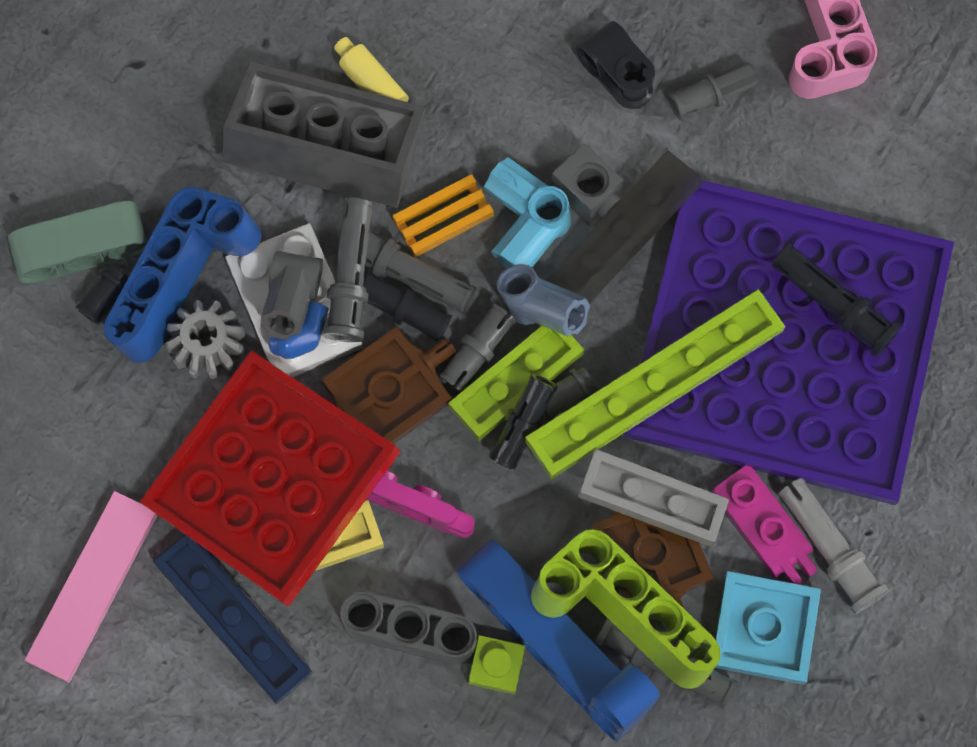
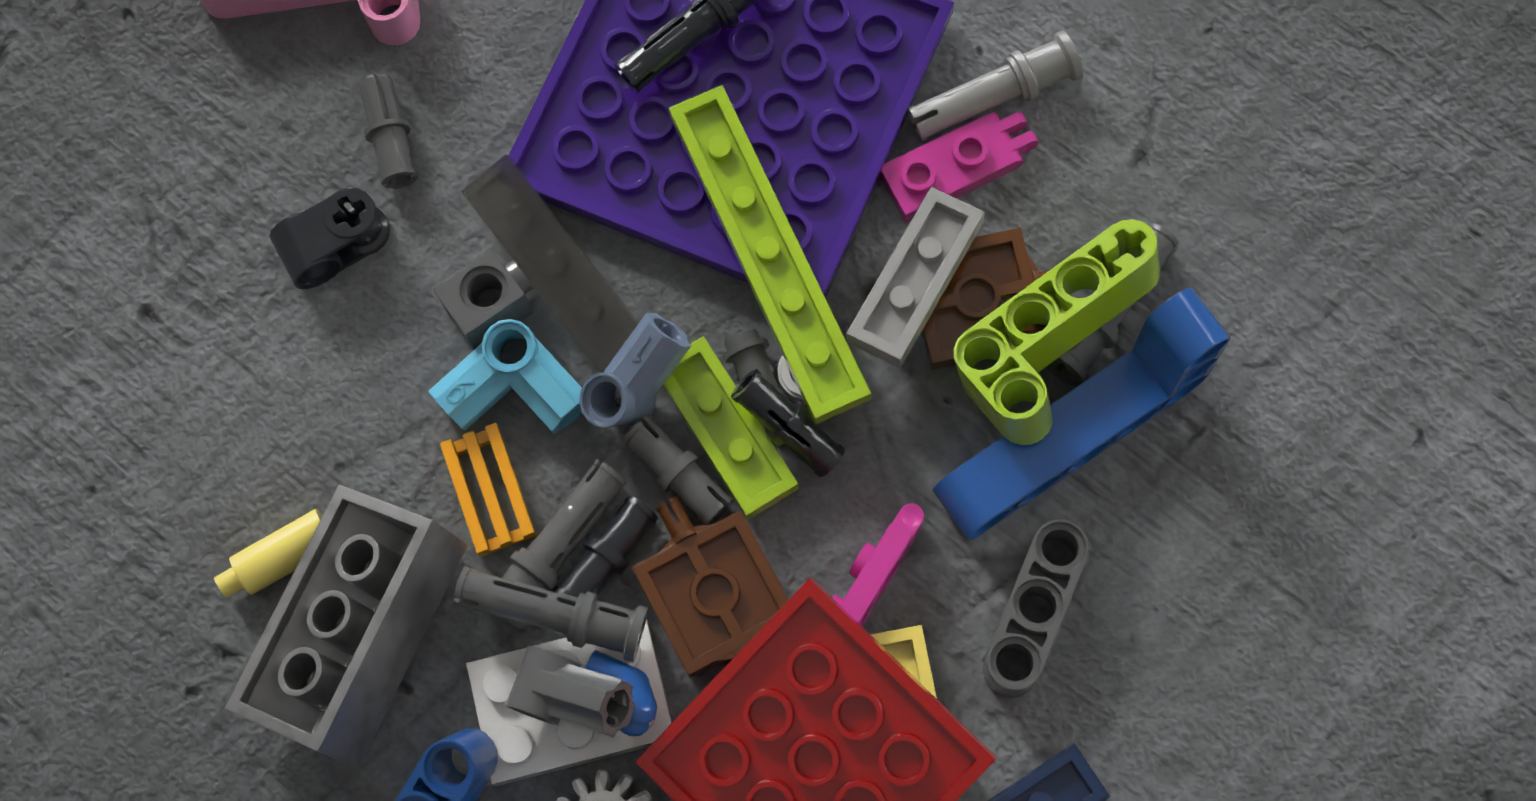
camera: 70 degrees left, 0 degrees up
(496, 665) = (1094, 506): lime plate -> none
(766, 627) = (1085, 176): medium azure plate -> none

